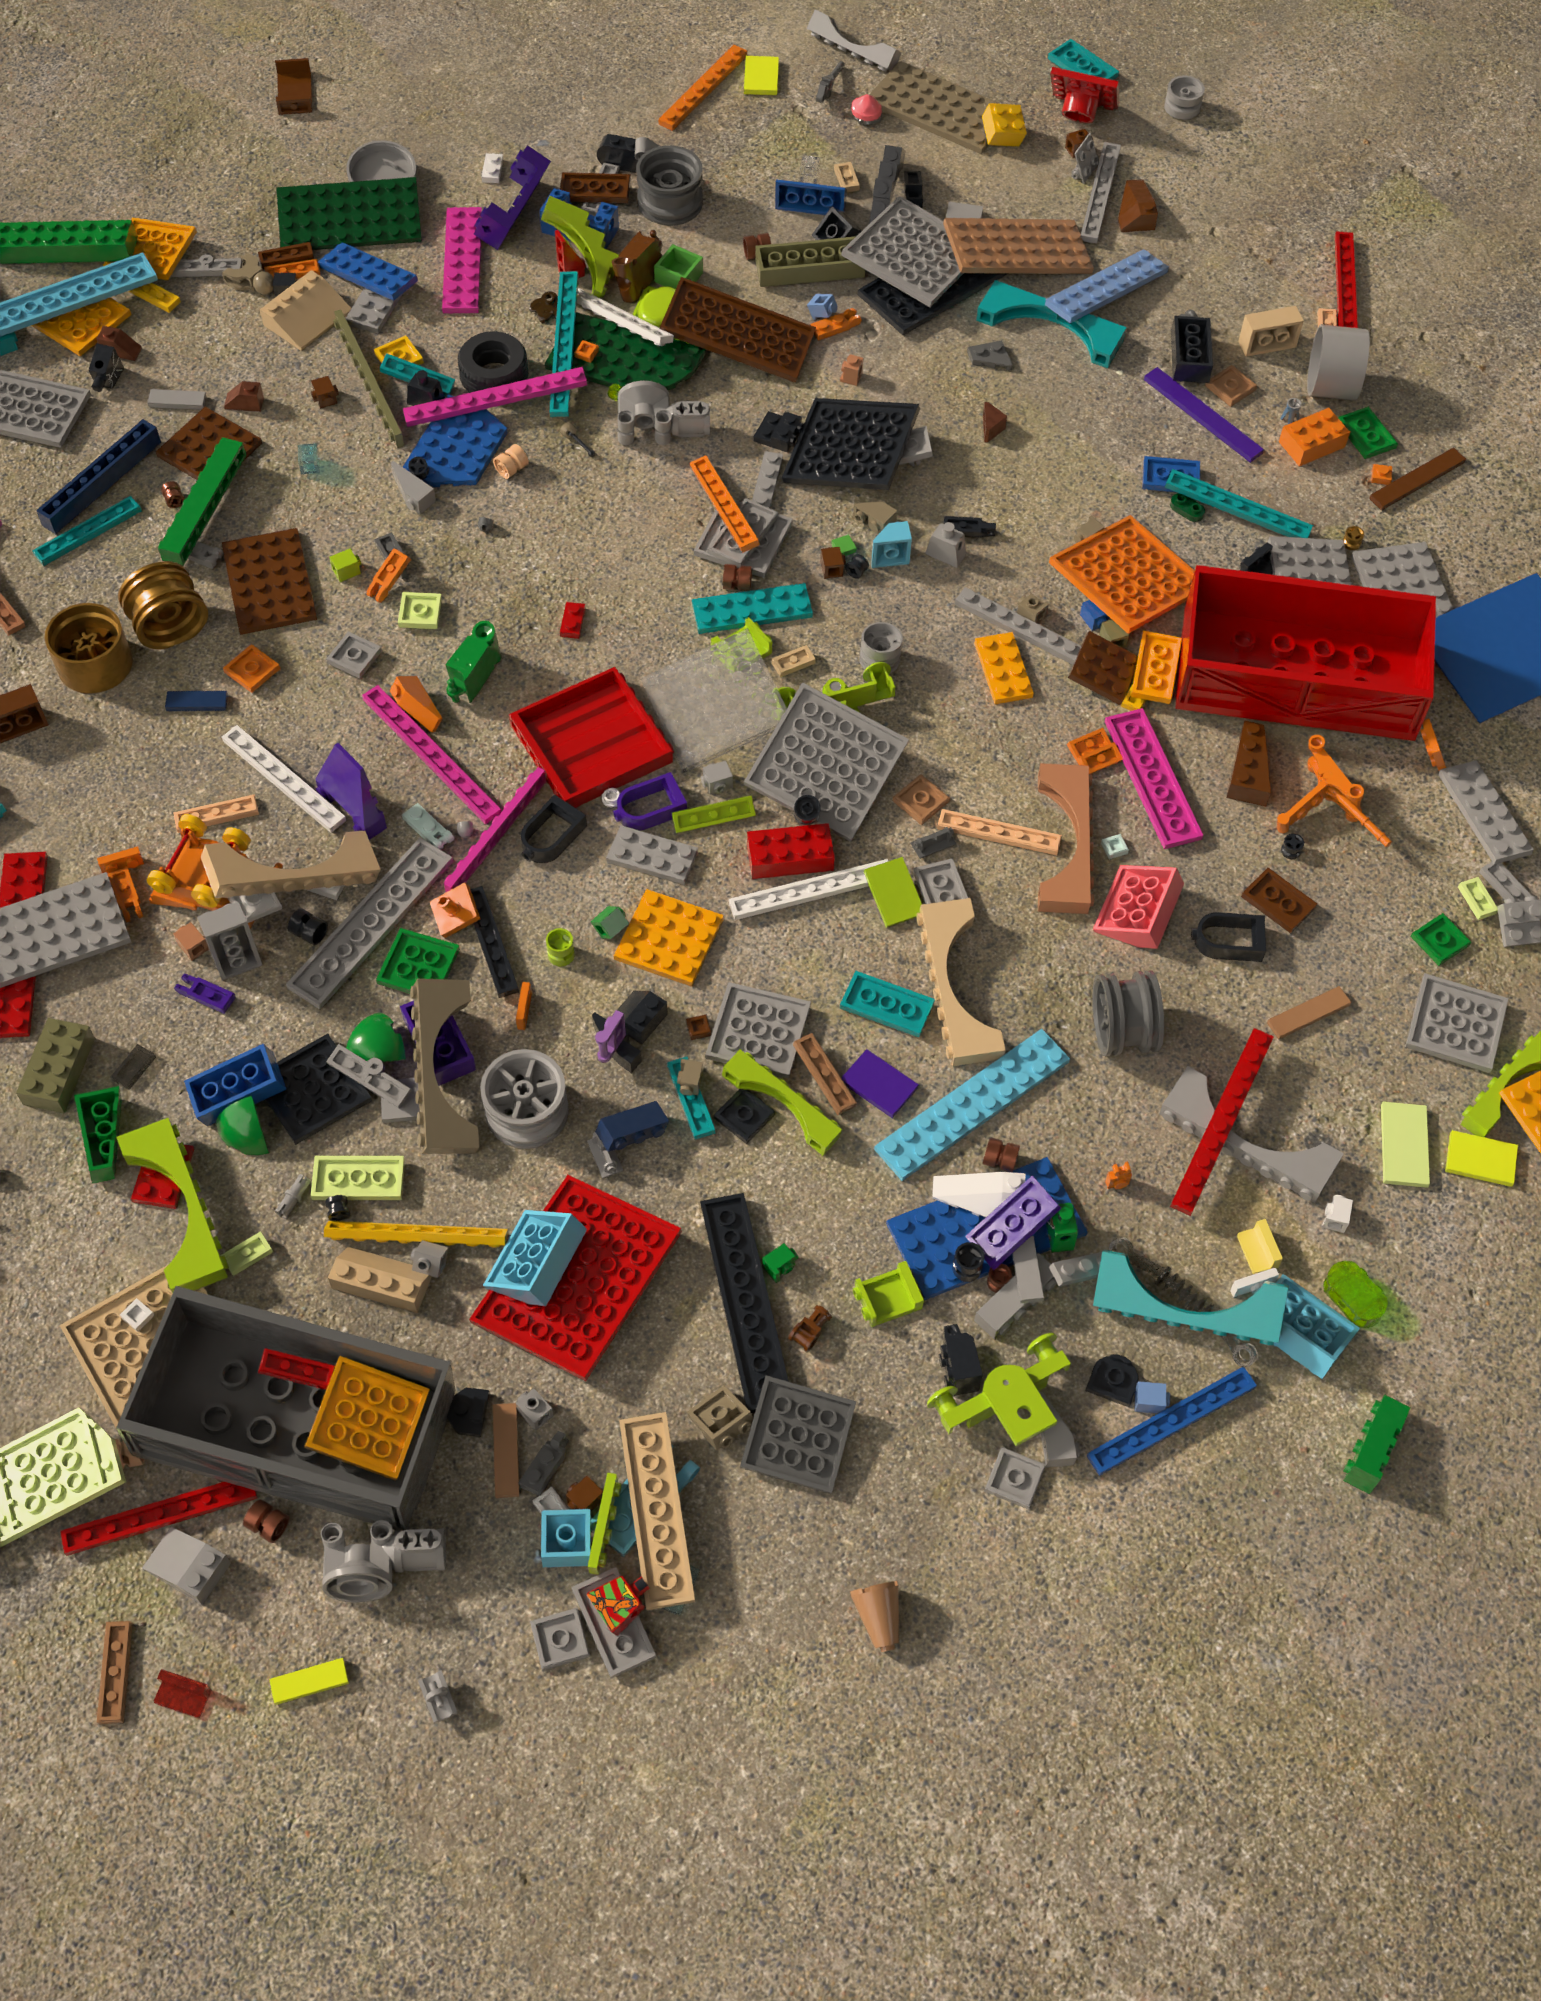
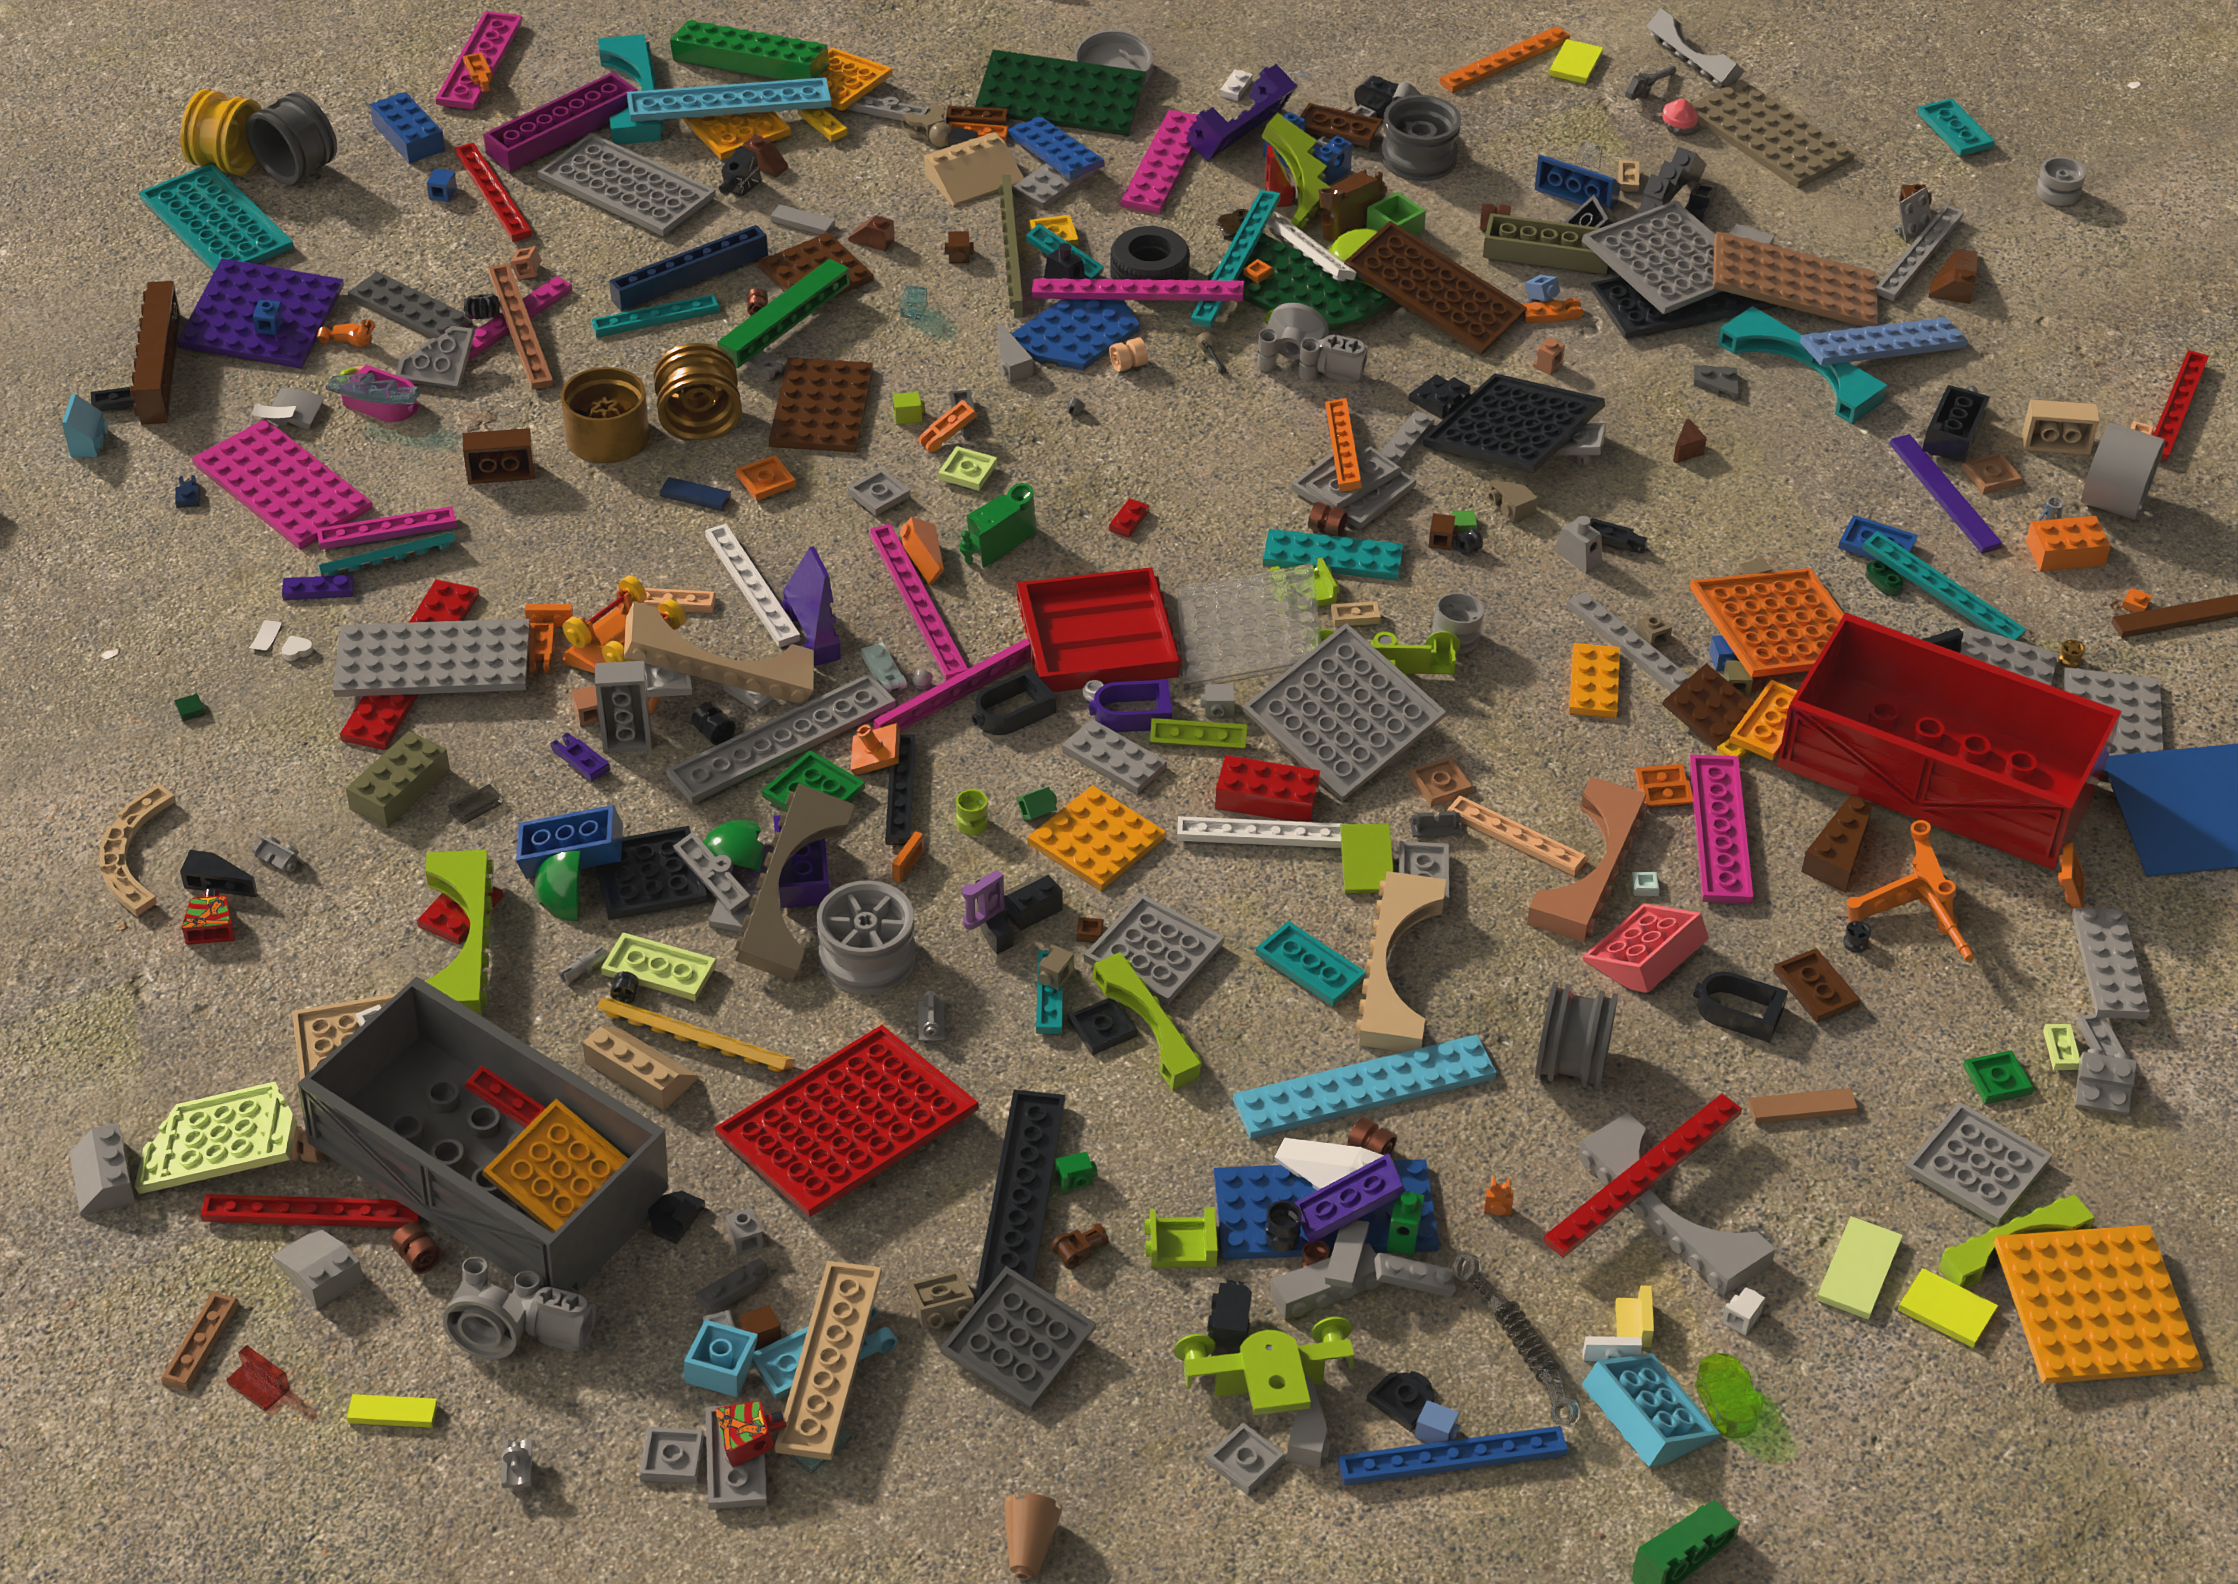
camera: 20 degrees right, 15 degrees down
(99, 1124) = (416, 833): green wedge -> none
(247, 1253) = (512, 1002): yellowish green plate -> none
(416, 464) = (1023, 331): black wheel -> none
(429, 1258) = (698, 1059): light grey brick -> none
(506, 1450) = (696, 1263): medium nougat tile -> none
(536, 1256) = (811, 1085): medium azure slope -> none
(602, 1532) = (765, 1353): lime plate -> none
(632, 1126) = (971, 996): dark blue brick -> none
(807, 810) = (1299, 749): black wheel -> none
(824, 1074) = (1208, 1009): medium nougat tile -> none
(879, 1083) = (1267, 1037): dark purple tile -> none
(892, 546) = (1514, 529): medium azure slope -> none
(1004, 124) = (1832, 162): yellow brick -> none
(1083, 94) = (1937, 149): red piece -> none
(1123, 1291) = (1589, 1368): teal arch -> none
(1368, 433) = (2138, 556): green tile -> none

